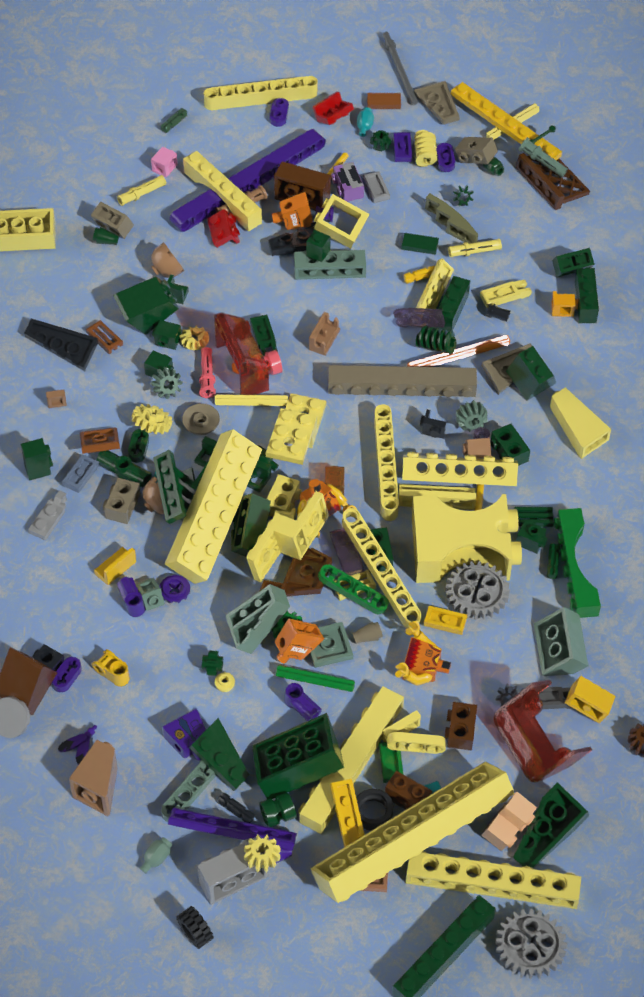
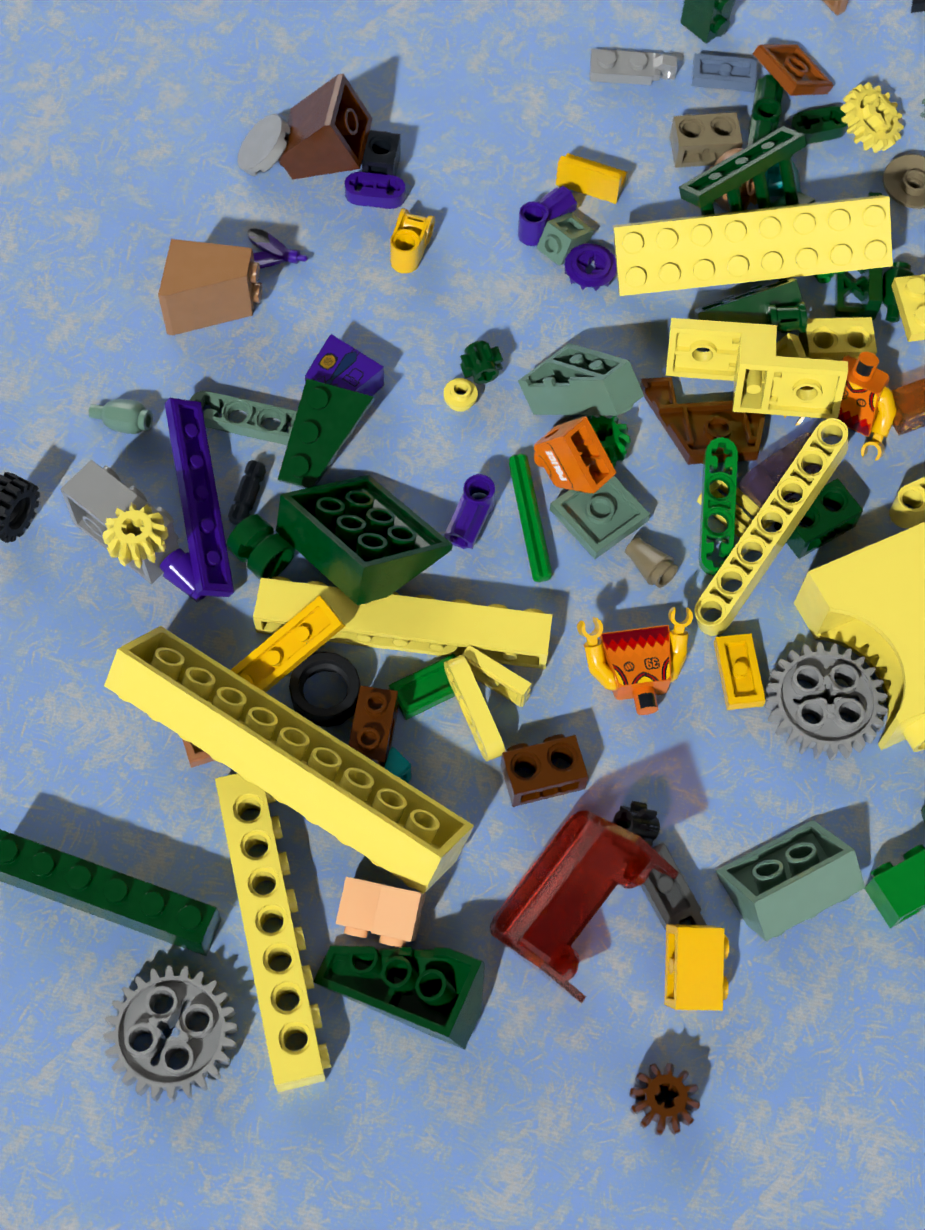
camera: 65 degrees right, 10 degrees up
(269, 508) = (788, 317): none -> dark green bush

